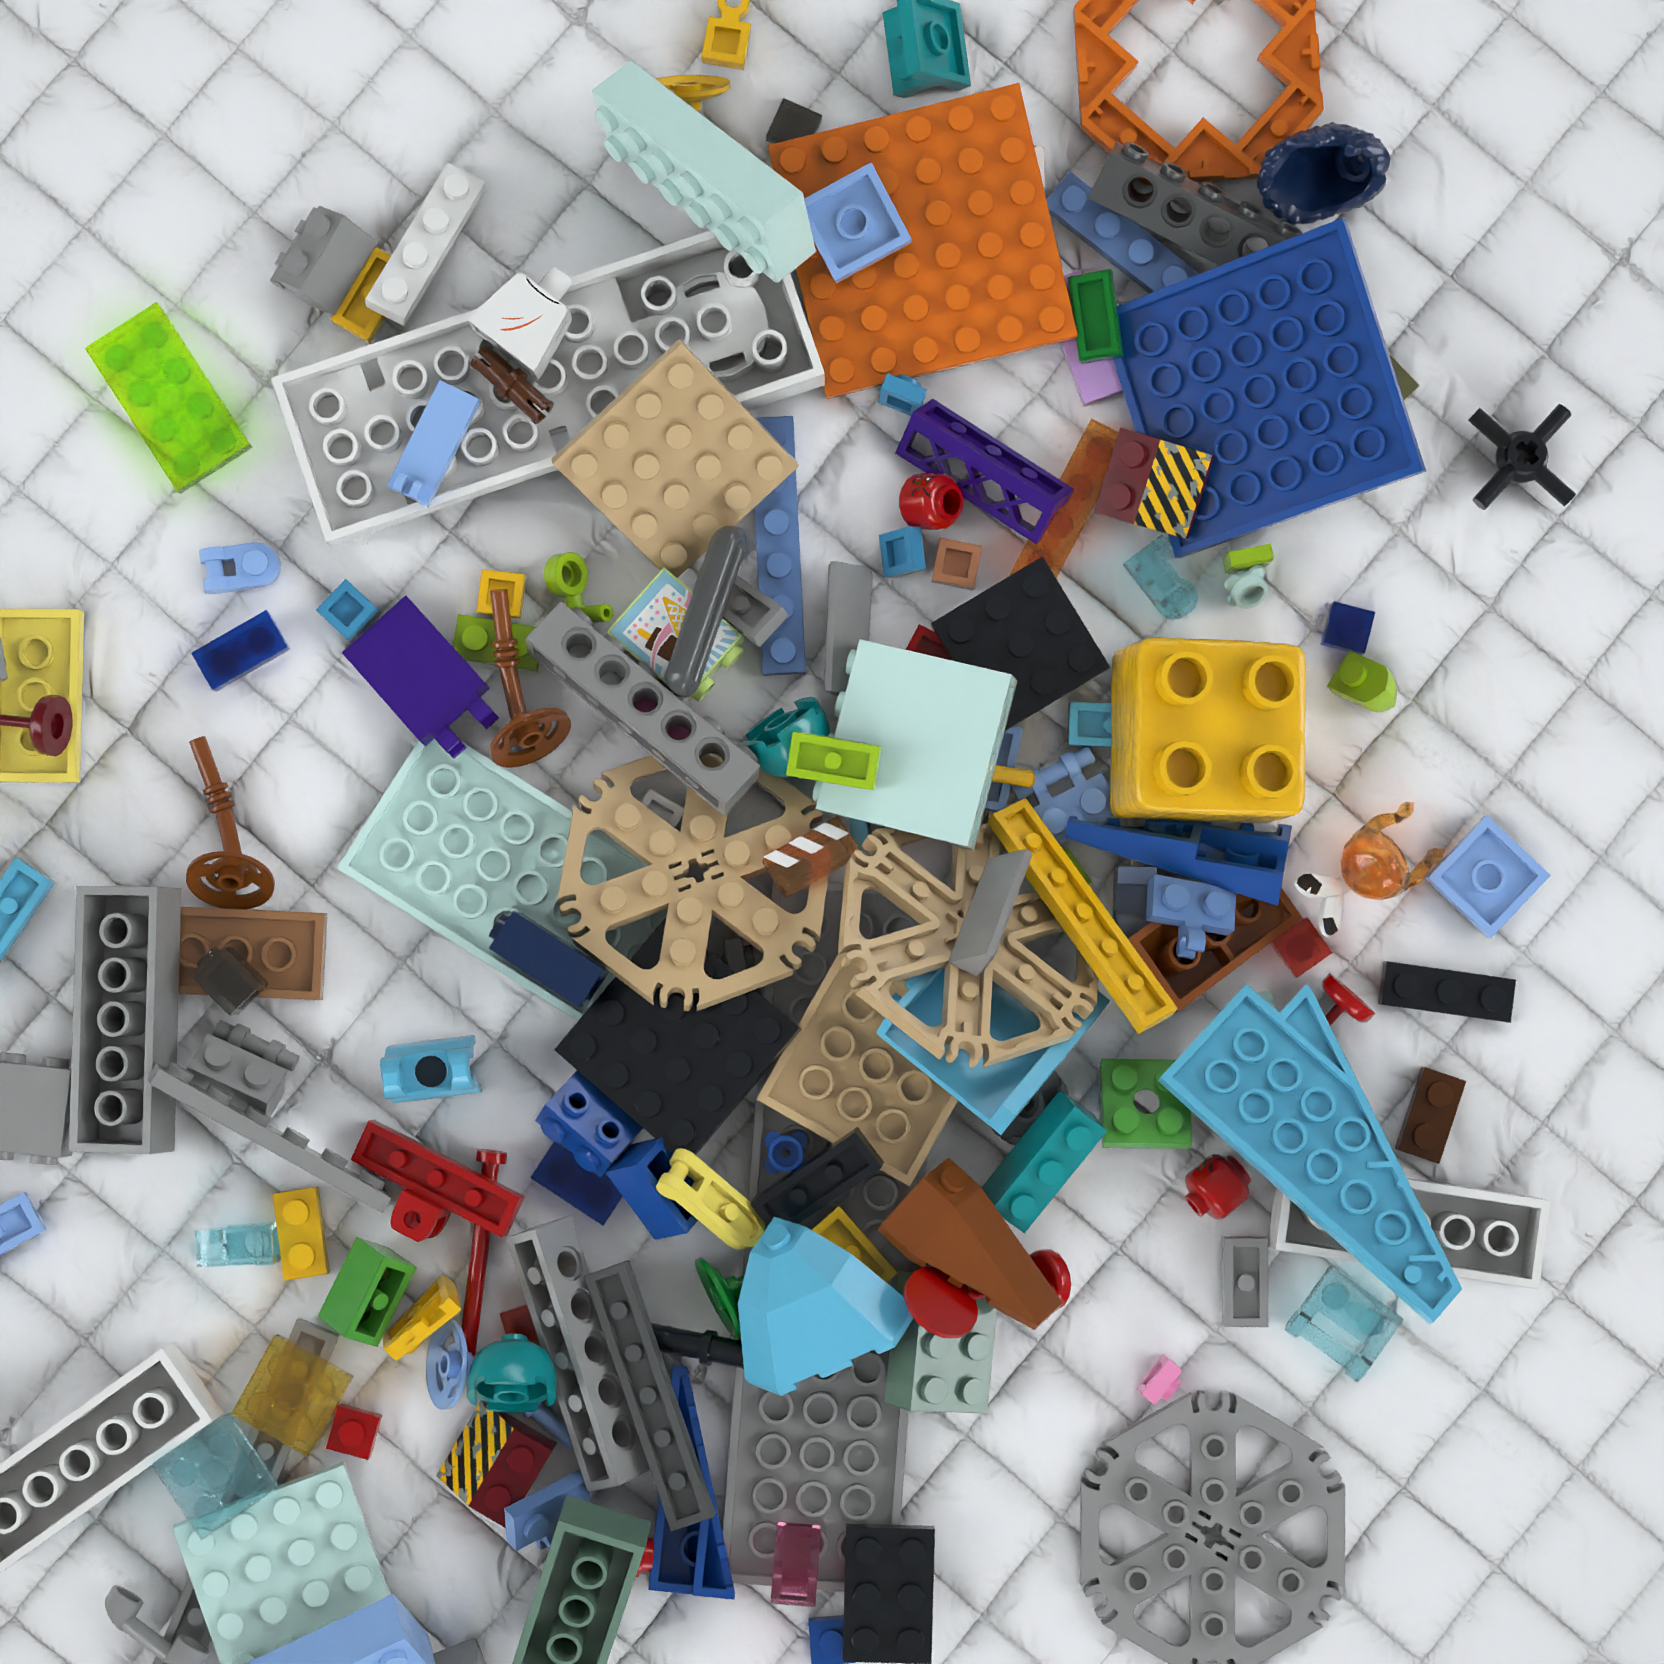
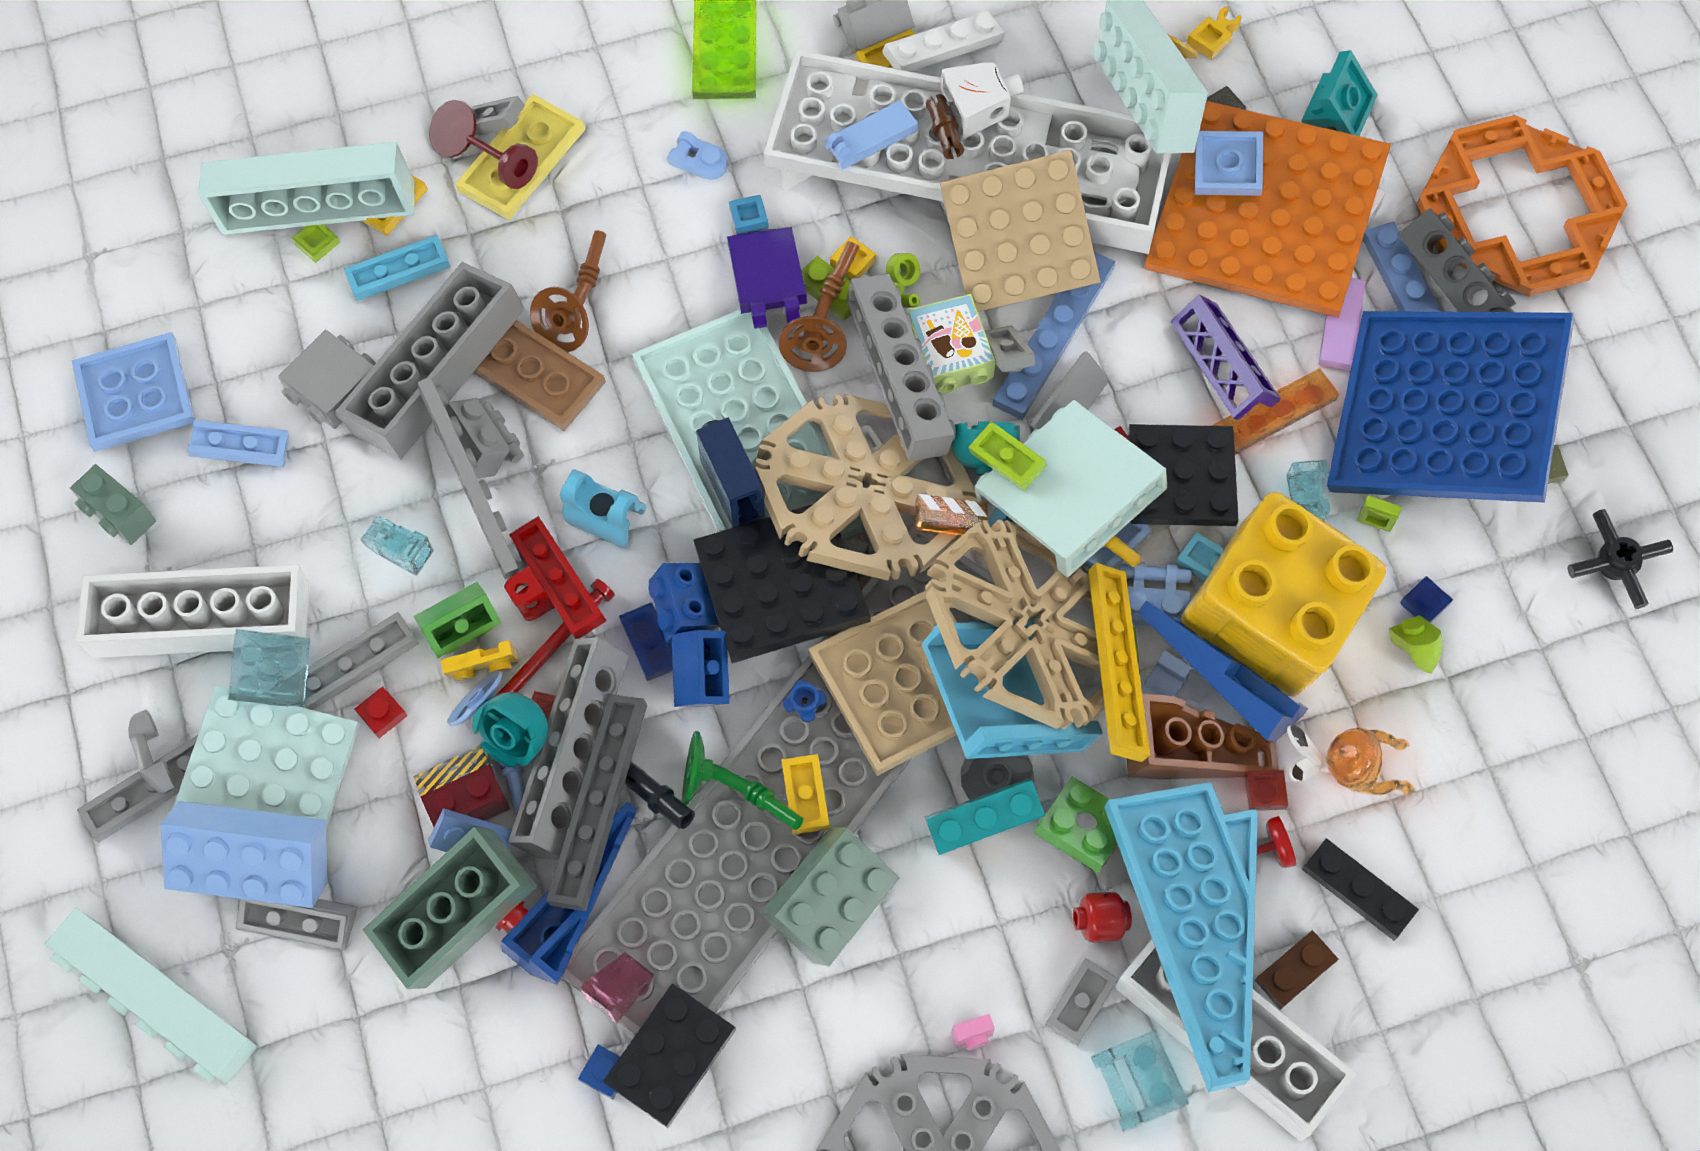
camera: 35 degrees right, 20 degrees down
(229, 979) = (514, 374): clear smoke brick -> none
(240, 651) = (664, 200): clear blue plate -> none
(292, 1395) = (358, 655): clear yellow plate -> none
(301, 1233) = (442, 564): yellow plate -> none
(705, 610) = (981, 328): dark grey piece -> none
(711, 1200) = (732, 694): light yellow plate -> none
(811, 1309) = (752, 800): medium azure brick -> none
(819, 1180) = (813, 727): black plate -> none
(902, 393) = (1196, 282): dark azure plate -> none
(902, 552) = (1137, 377): dark azure plate -> none
(930, 501) = (1176, 355): red head -> none
(953, 1310) = (854, 857): red piece -> none
(956, 564) = (1169, 405): nougat plate -> none
(961, 1233) = (896, 818): dark orange wedge -> none
(989, 911) = (1054, 613): light grey slope -> none
(1095, 316) = (1360, 309): green tile -> none
(1154, 483) = (1339, 423): slope -> none
(1192, 908) = (1200, 705): medium blue plate -> none
(1247, 587) = (1368, 539): light aqua plate -> none
(1322, 173) = (1575, 290): dark blue hair -> none
(1487, 876) = (1437, 824): light blue plate -> none

